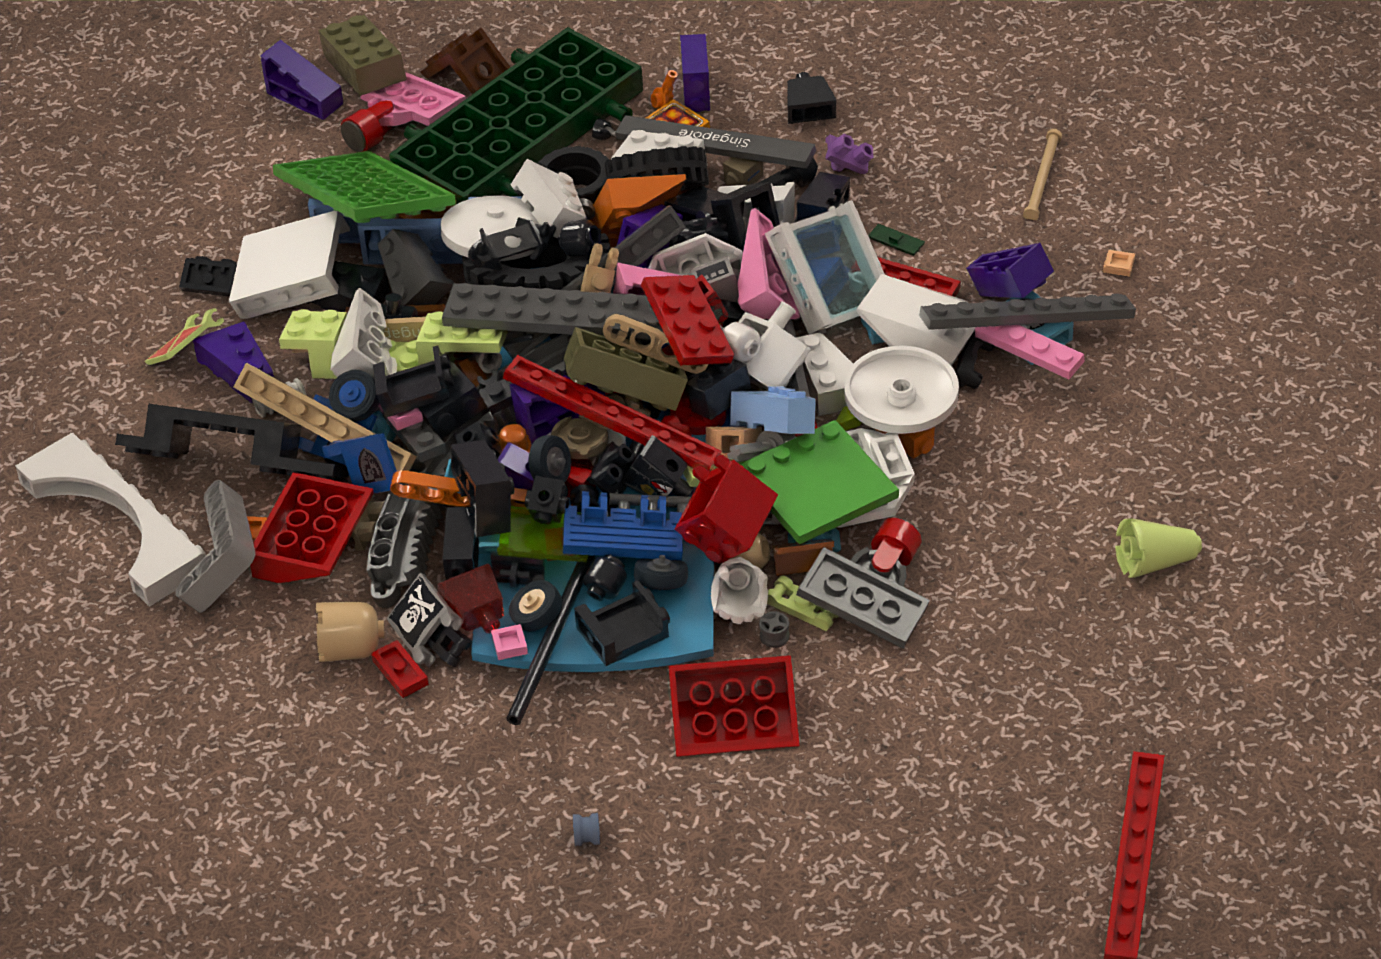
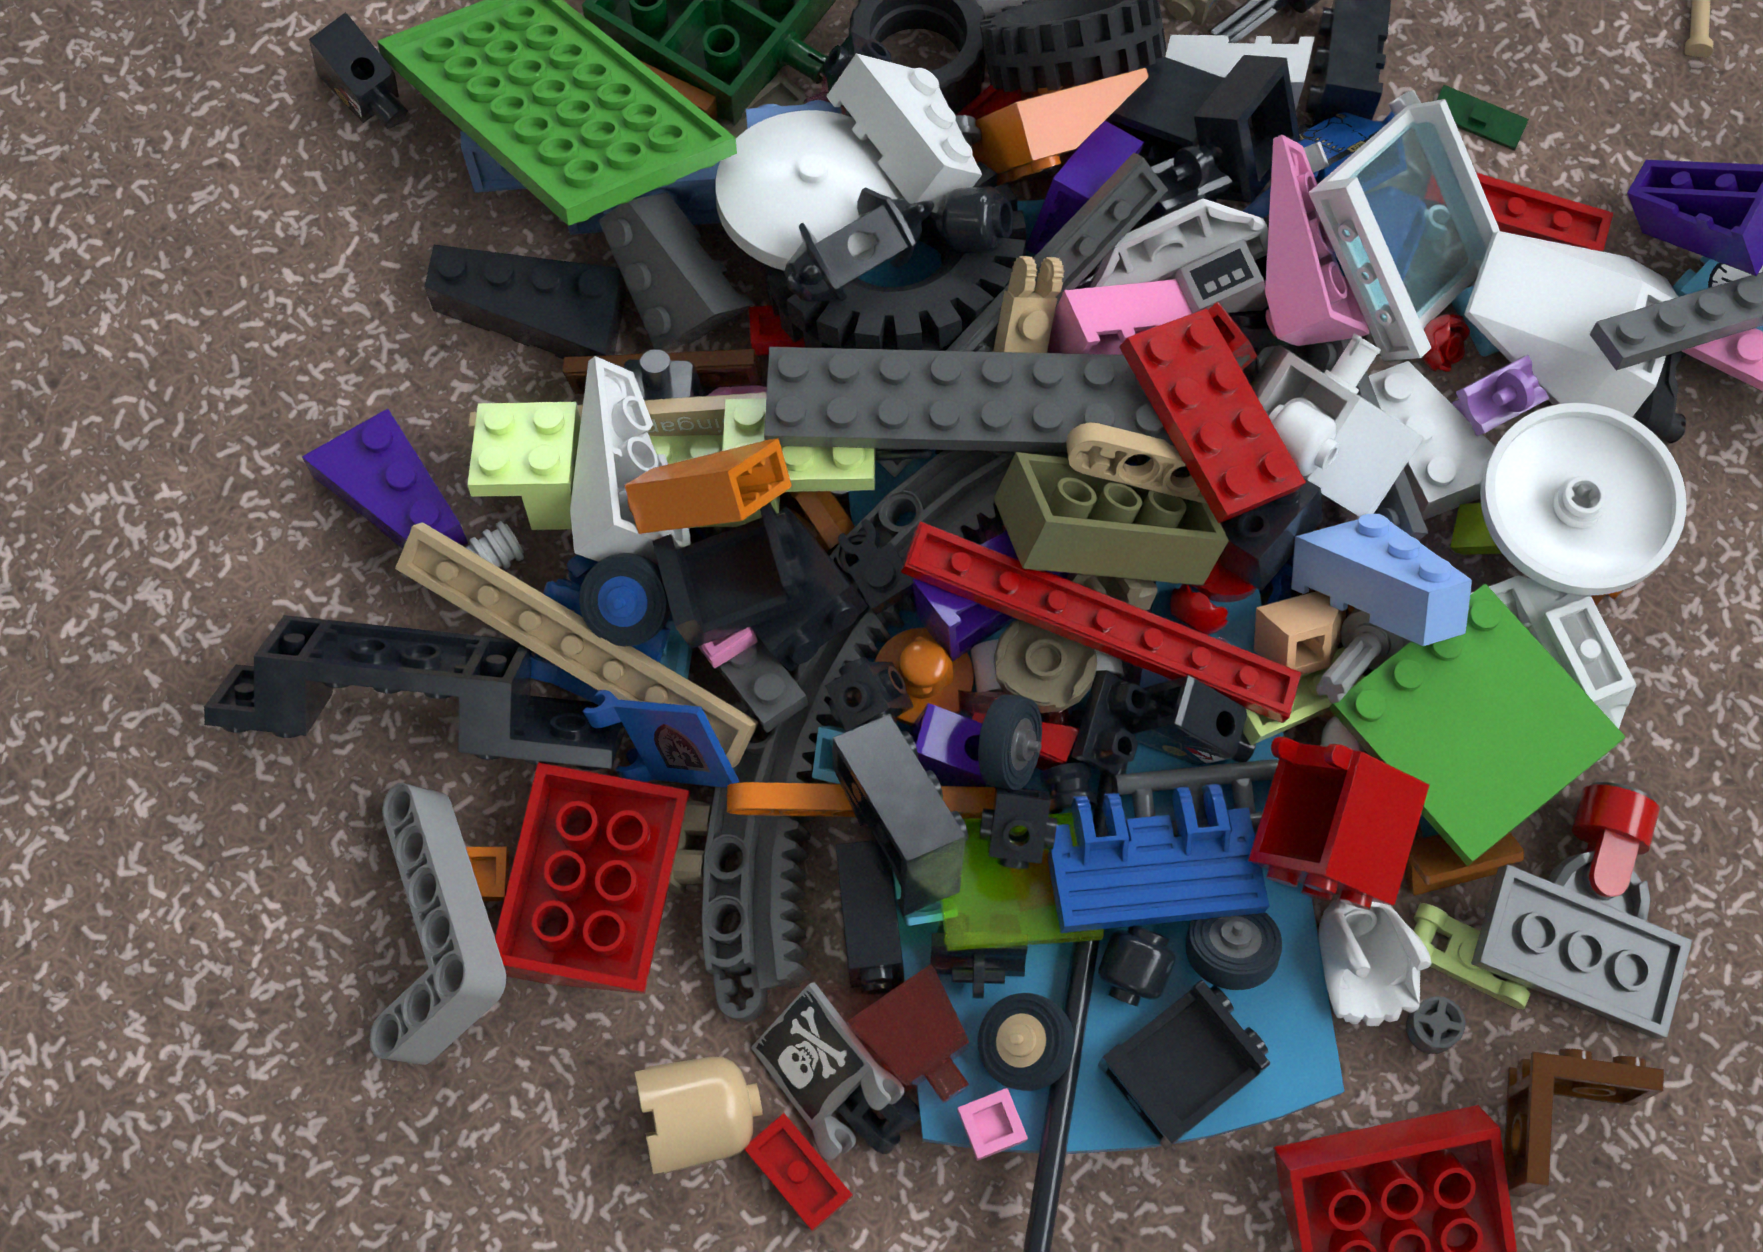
camera: 10 degrees left, 25 degrees up
(74, 469) = (336, 952): white arch -> none
(184, 337) = (283, 446): yellowish green flag -> none
(208, 276) = (305, 292): black bracket -> none
(258, 180) = (357, 72): none -> black torso
(287, 265) = (441, 271): white panel -> none
(407, 336) = (709, 488): none -> orange slope
(830, 647) = (1567, 1075): none -> reddish brown bracket
(849, 331) = (1447, 340): none -> red plate
(860, 345) = (1500, 396): none -> medium lavender hips

